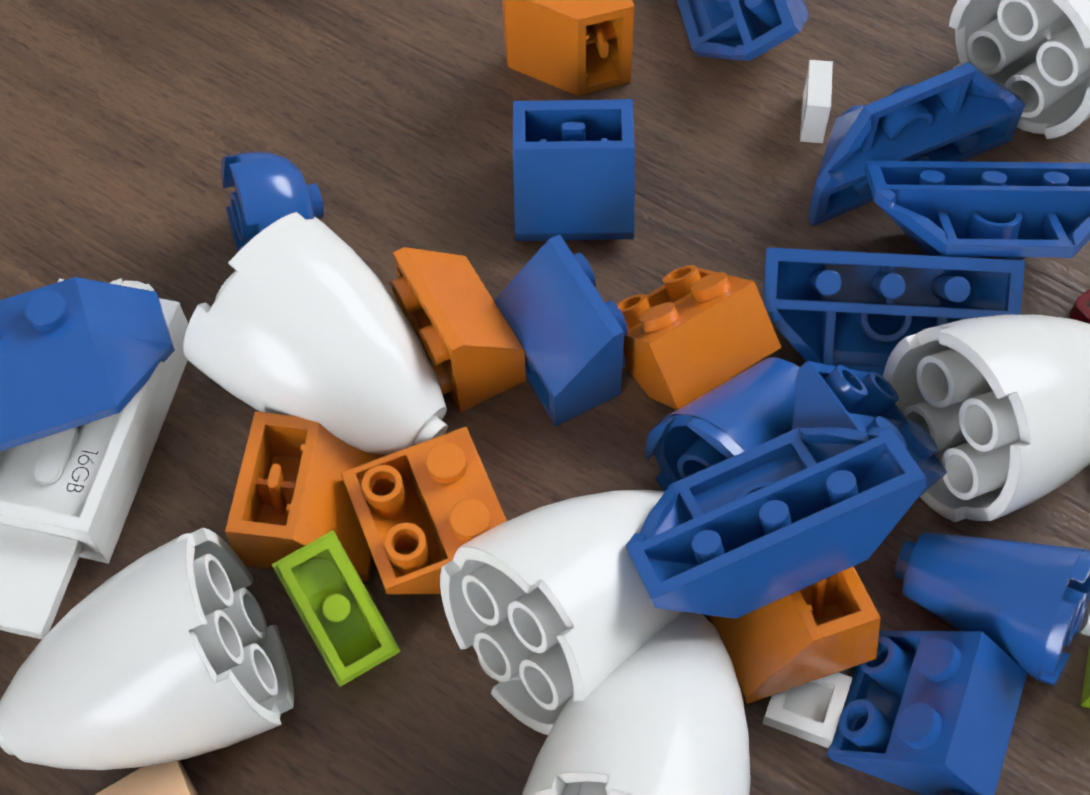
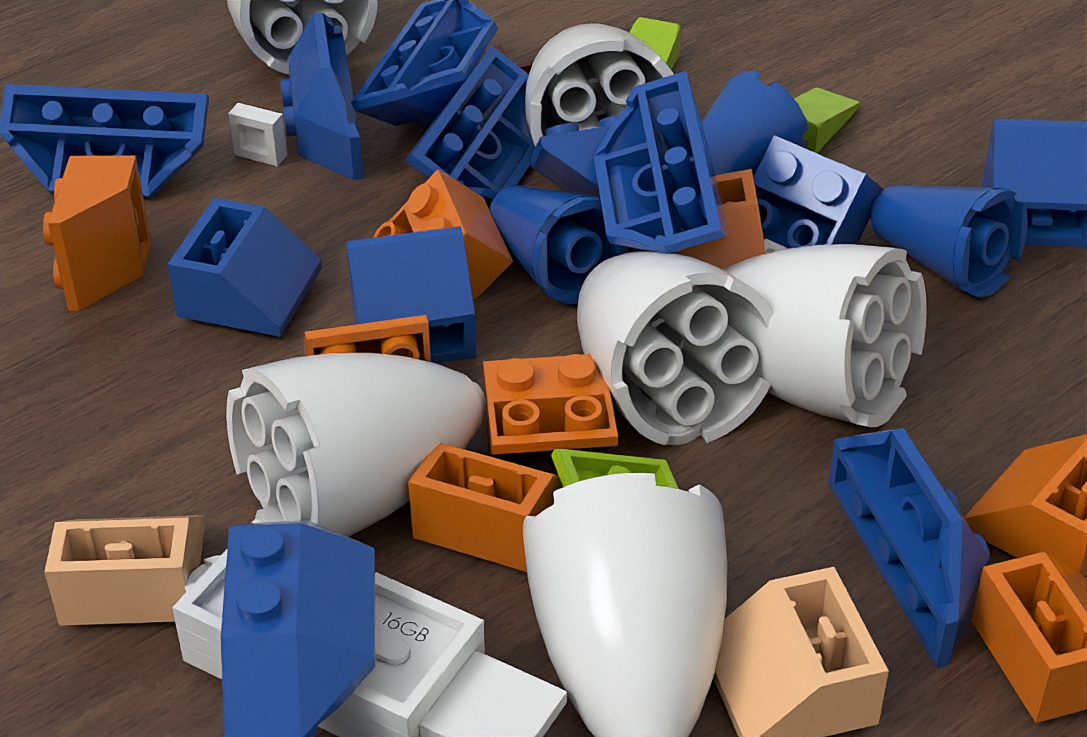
camera: 75 degrees left, 20 degrees down
(160, 223) = (122, 568): none -> light nougat slope
(265, 192) = (164, 465): blue cylinder -> none

